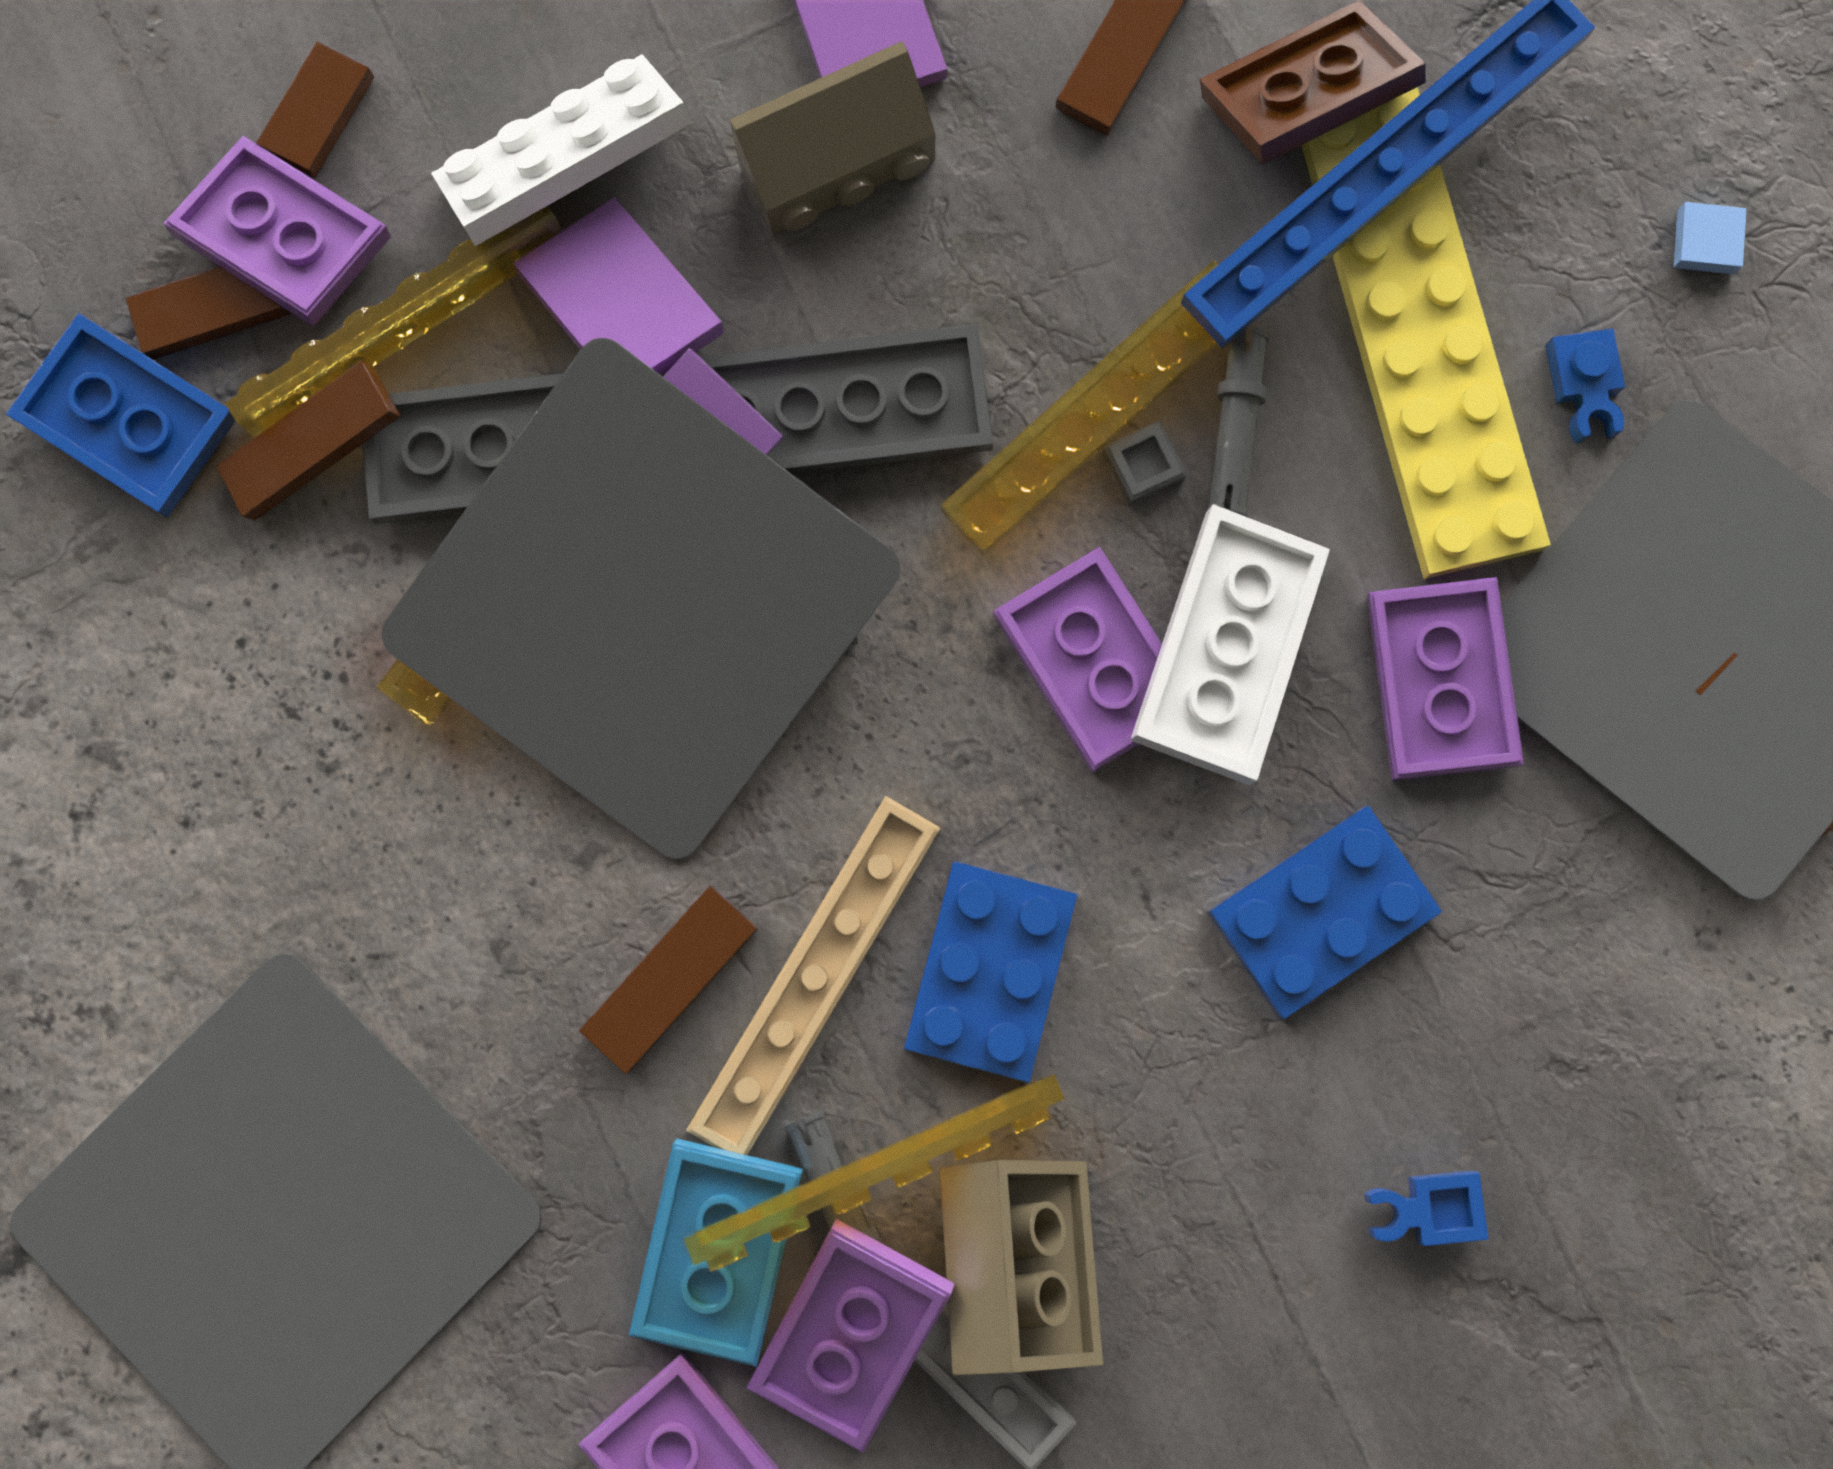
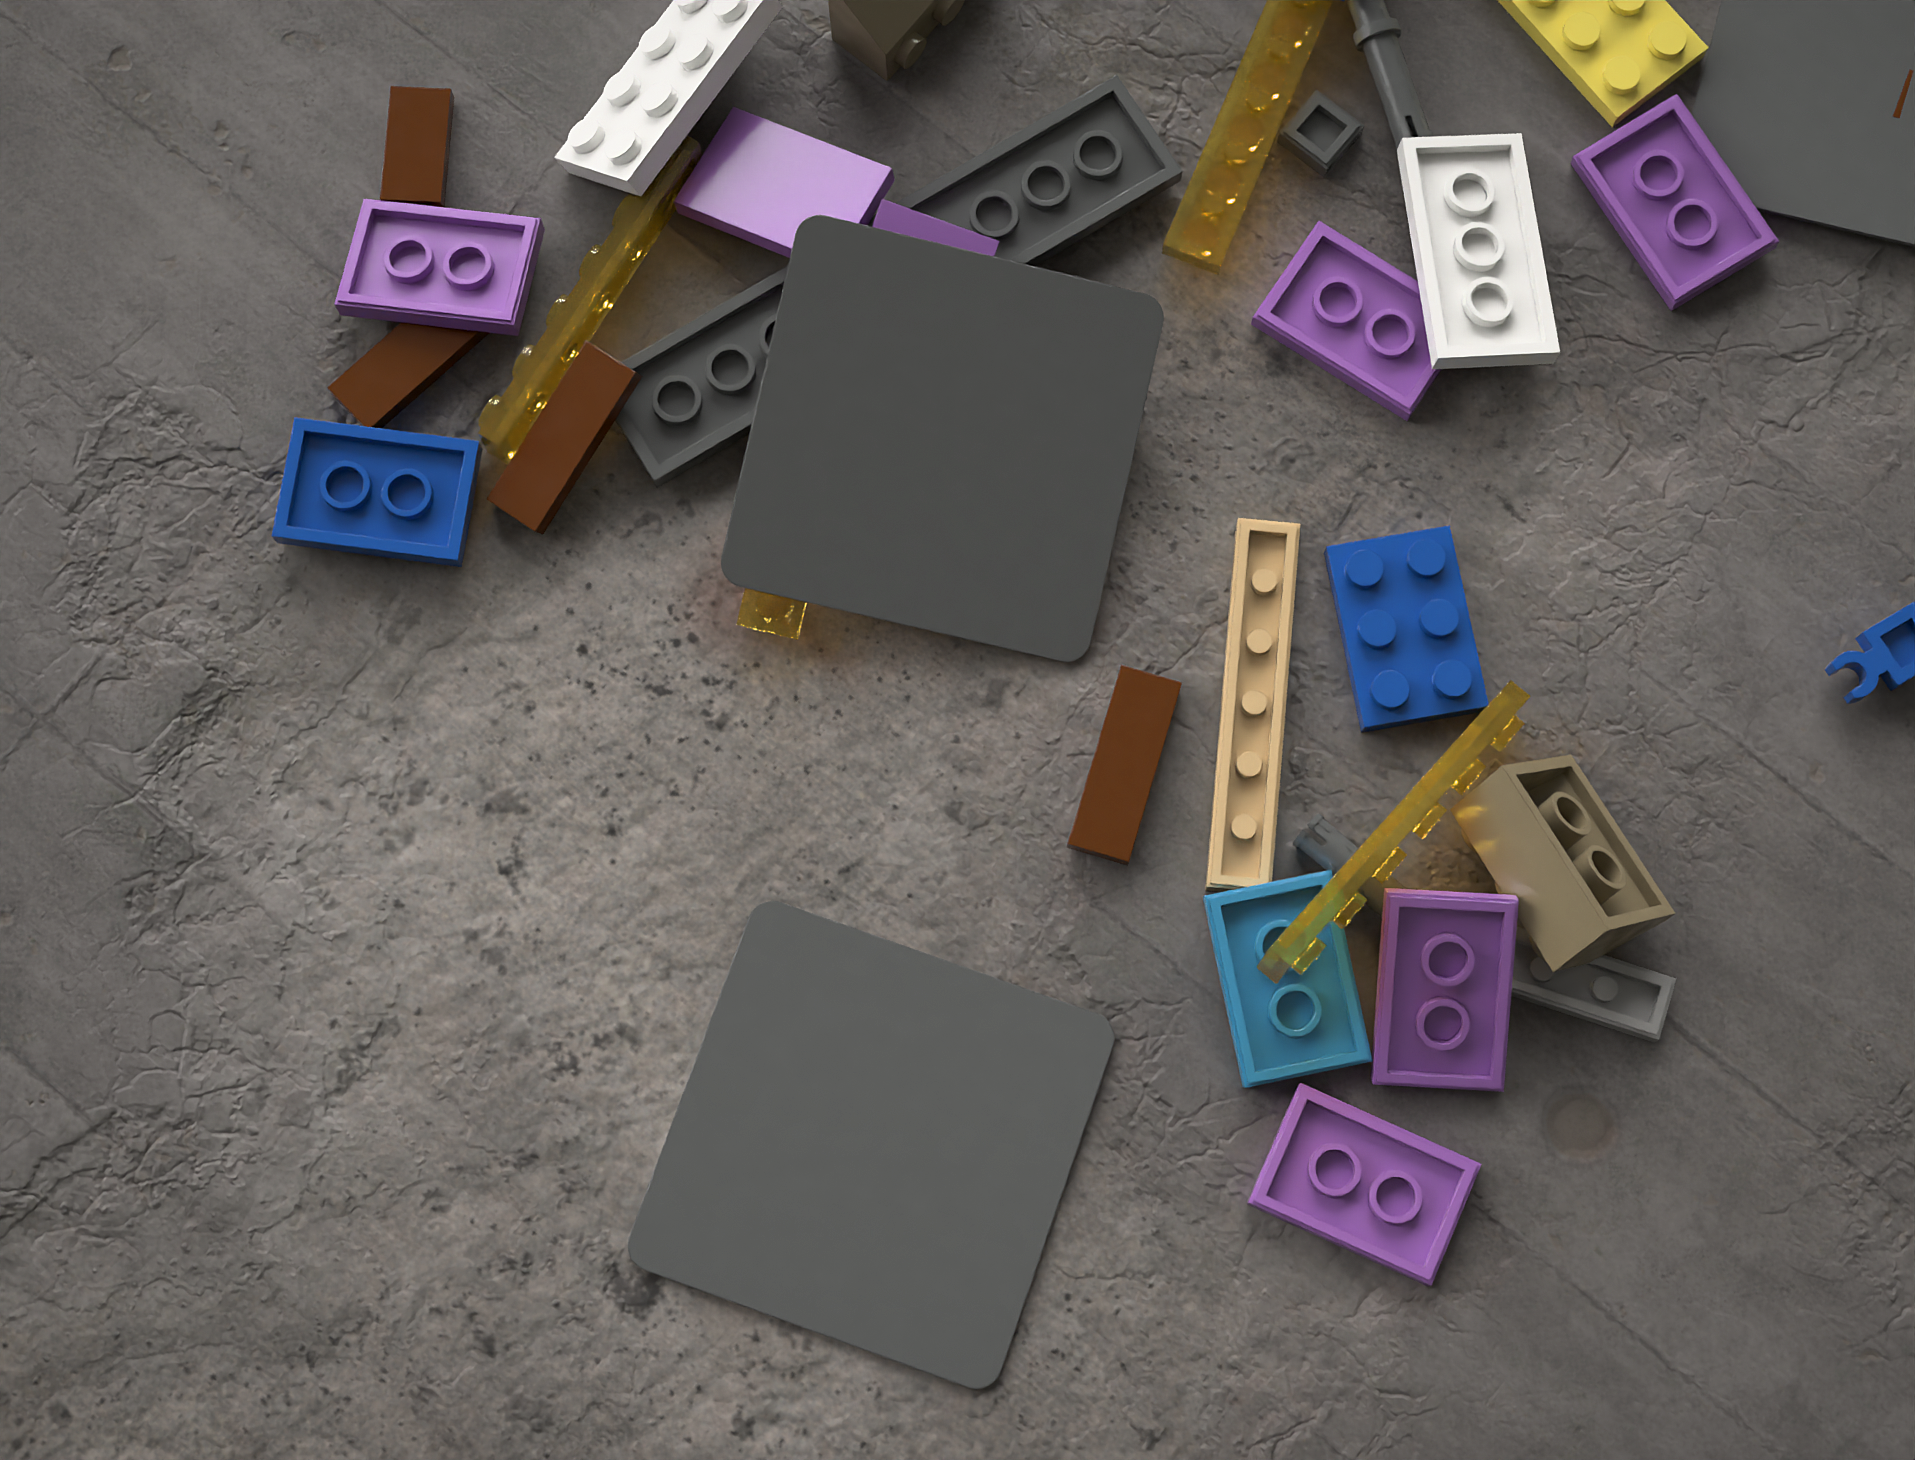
camera: 25 degrees left, 5 degrees down
(1324, 912) = (1670, 447): blue plate -> none

